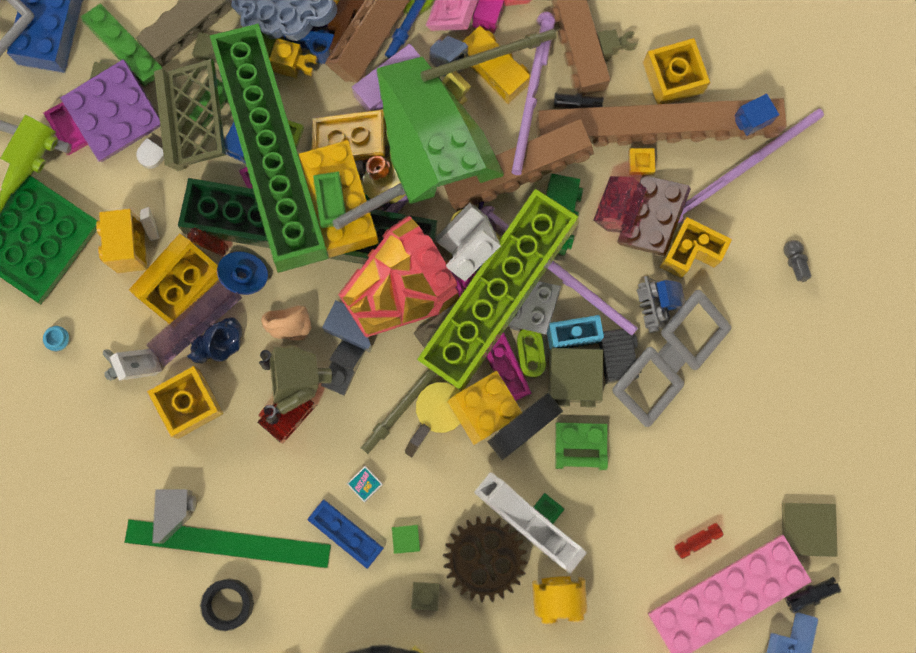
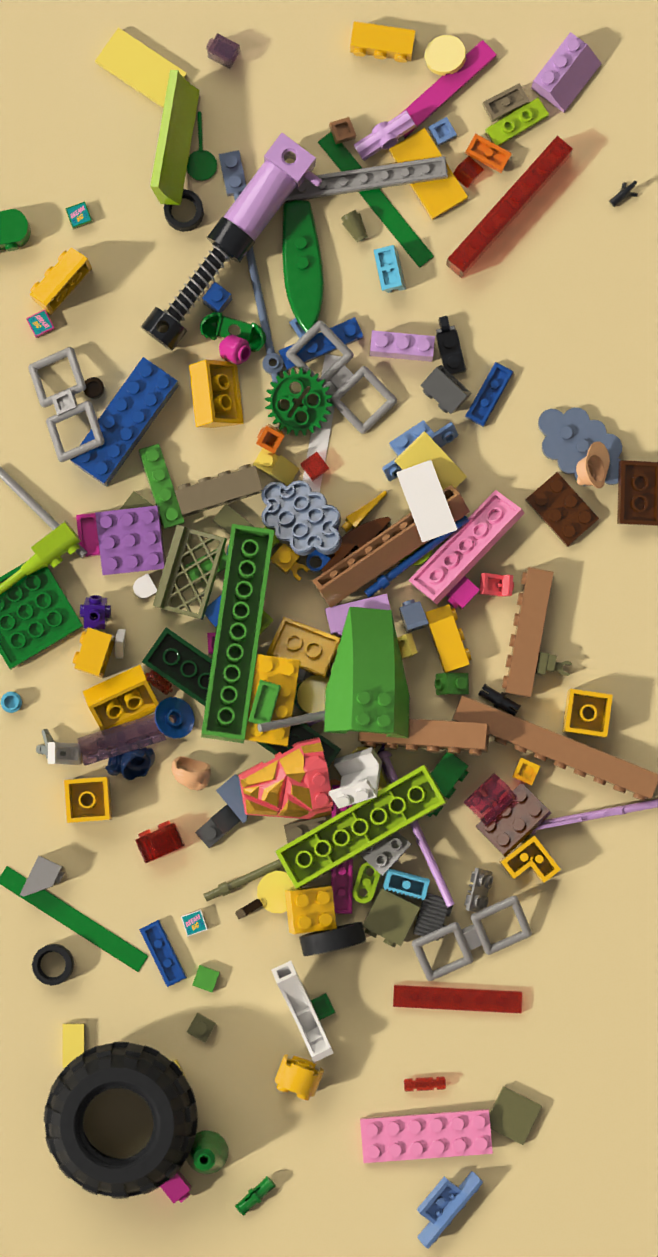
camera: 30 degrees right, 5 degrees up
(111, 192) = (95, 612): none -> dark purple brick
(292, 378) = (177, 819): olive torso -> none
(374, 163) = (315, 678): orange plate -> none
(506, 548) = (277, 1021): dark brown gear -> none
(514, 106) = (452, 683): none -> bright green bracket
(530, 41) = (482, 636): olive bar -> none
(547, 22) = (484, 653): lavender bar -> none
(583, 437) = (373, 964): bright green plate -> none
(670, 294) = (494, 890): blue slope -> none
(687, 432) = (457, 999): none -> clear red tile
(756, 114) = (628, 781): blue brick -> none
(797, 260) = (611, 897): dark grey axle -> none
(812, 595) = (490, 1164): black pin -> none

